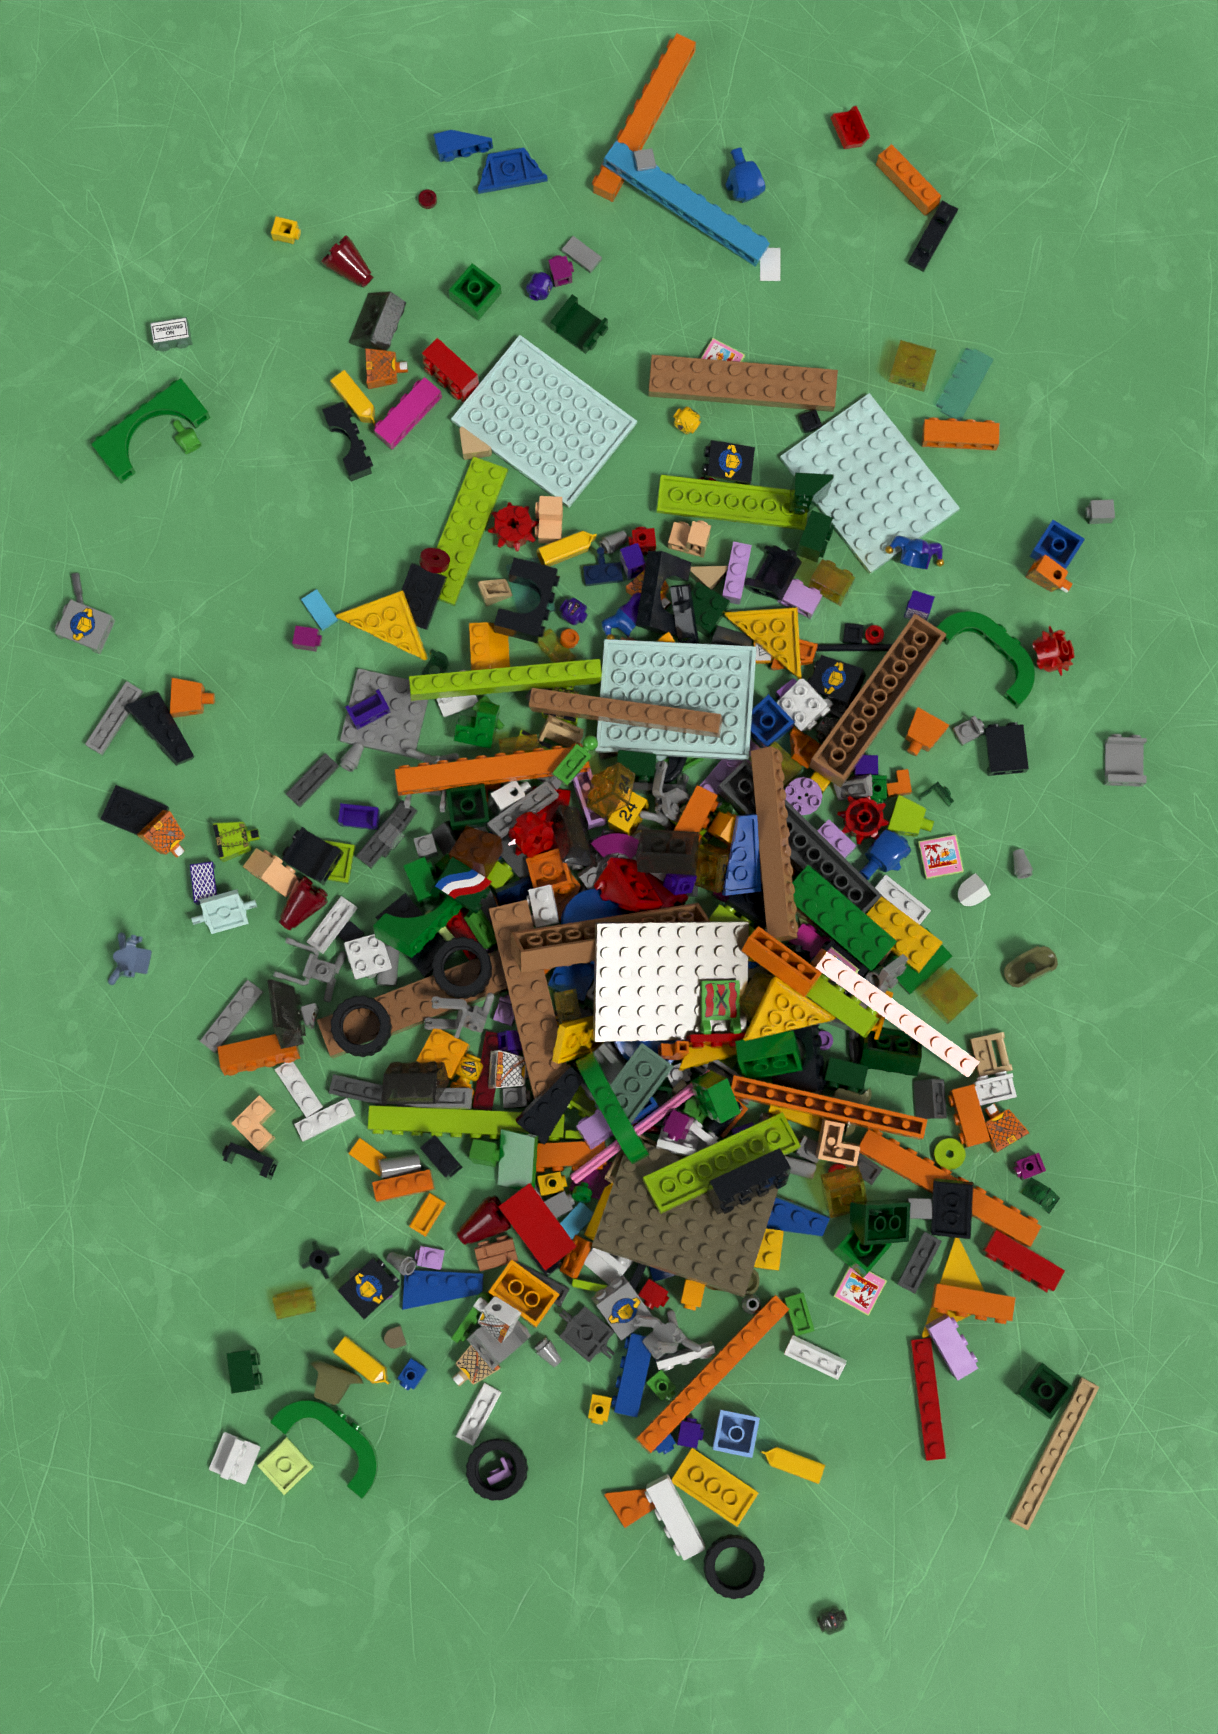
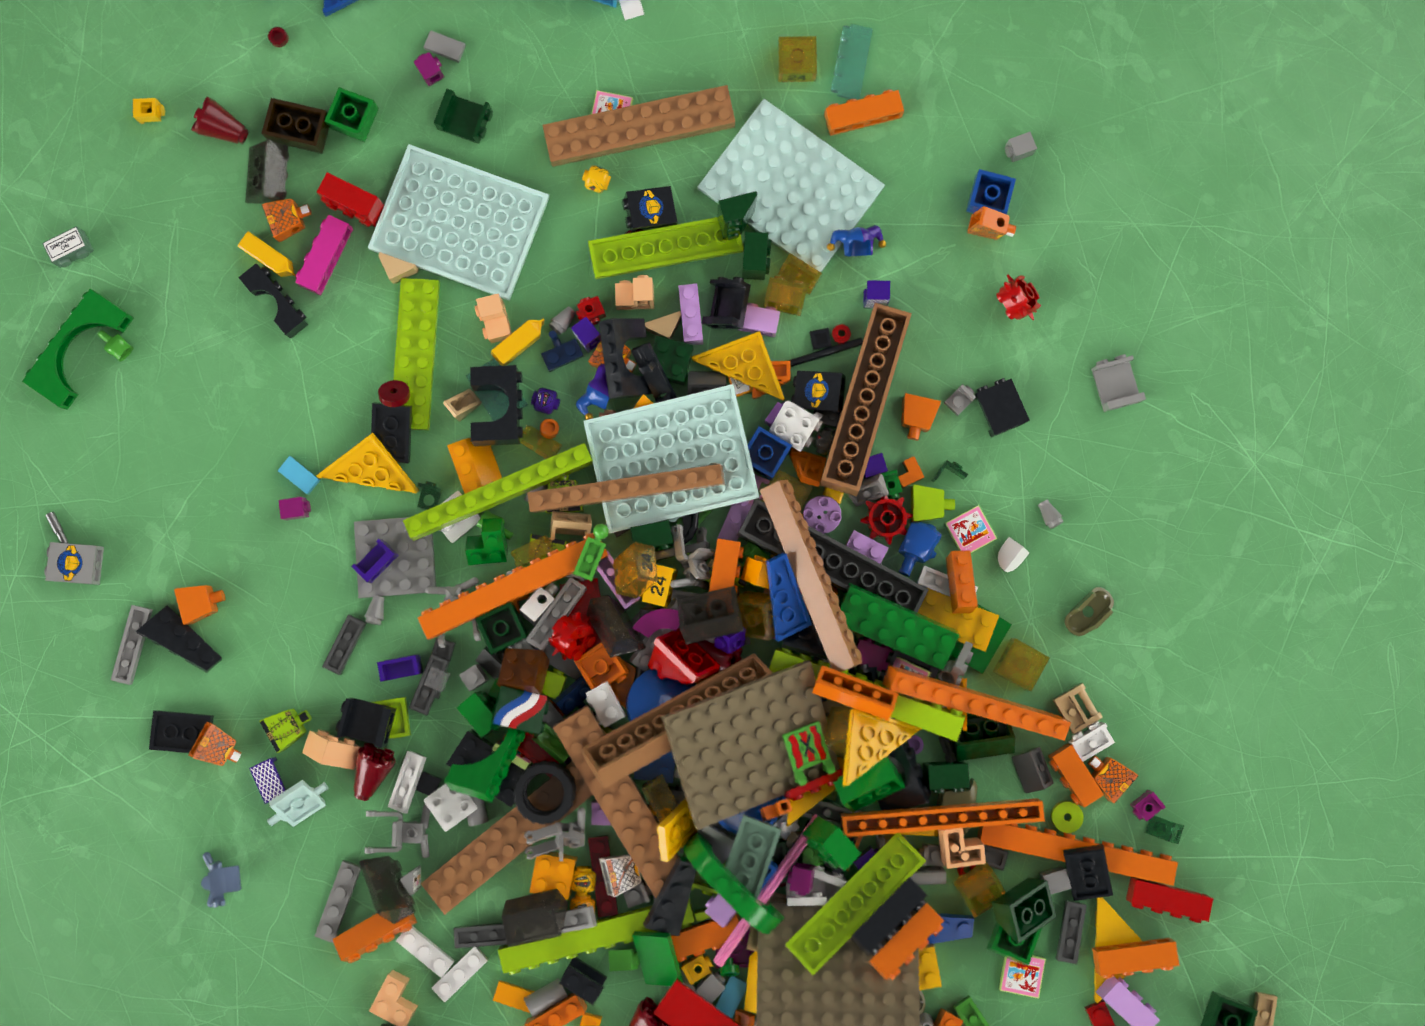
camera: 15 degrees left, 5 degrees up
(341, 1013) = (442, 892): black tyre -> none
(420, 286) = (296, 125): none -> dark brown brick
(509, 1042) = (613, 845): dark purple brick -> none
(513, 516) = (453, 327): red brick -> none
(539, 286) = (413, 90): dark purple head -> none
(758, 1210) = (906, 941): none -> orange brick
(810, 421) = (715, 143): black tile -> none
(851, 561) = (796, 269): none -> clear yellow hinge
(915, 898) = (961, 582): none -> orange brick
(1002, 642) = (970, 305): green arch -> none

